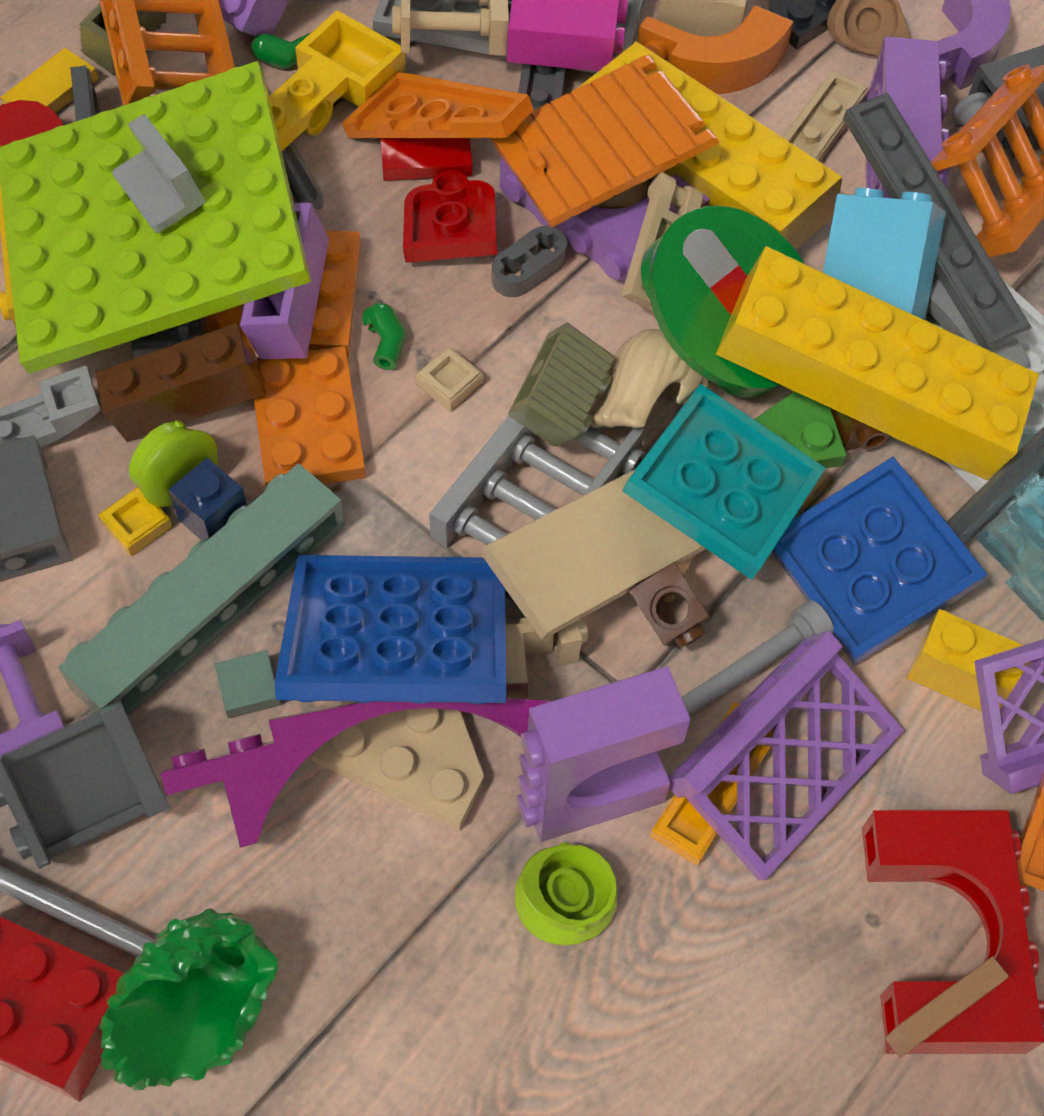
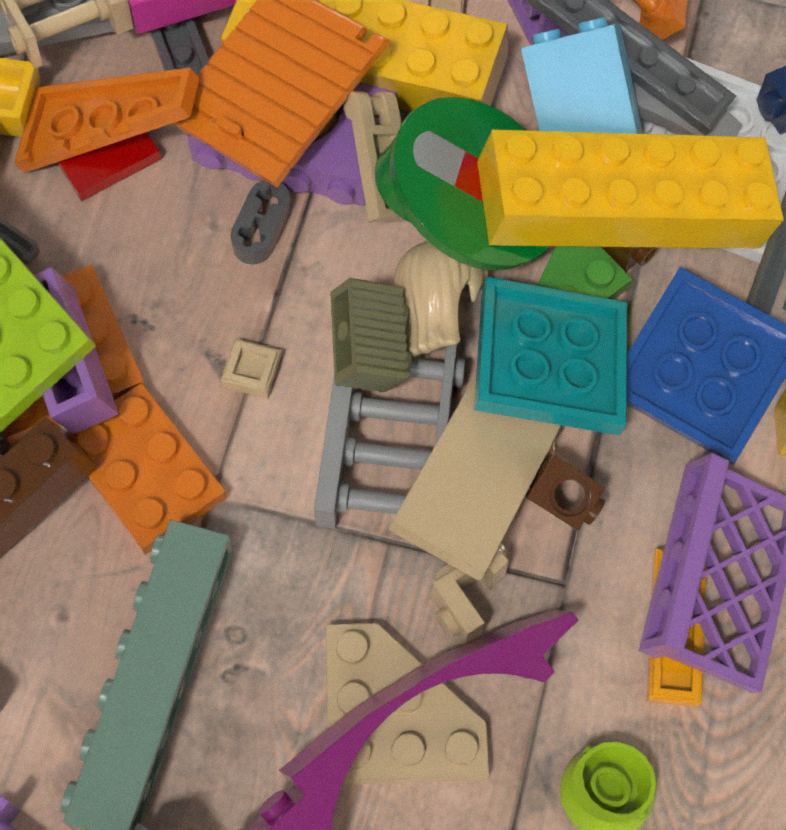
camera: 25 degrees left, 5 degrees up
(134, 521) = (41, 643): yellow tile -> none
(167, 457) = (54, 575): lime piece -> none
(206, 499) = (105, 595): dark blue brick -> none
(247, 684) = (233, 744): sand green tile -> none
(391, 331) = (175, 348): green arm -> none
(393, 631) = (347, 635): blue plate -> none
(450, 219) = (169, 213): red plate -> none
(599, 753) = (595, 662): medium lavender arch -> none
(804, 622) = (678, 449): light grey piece -> none

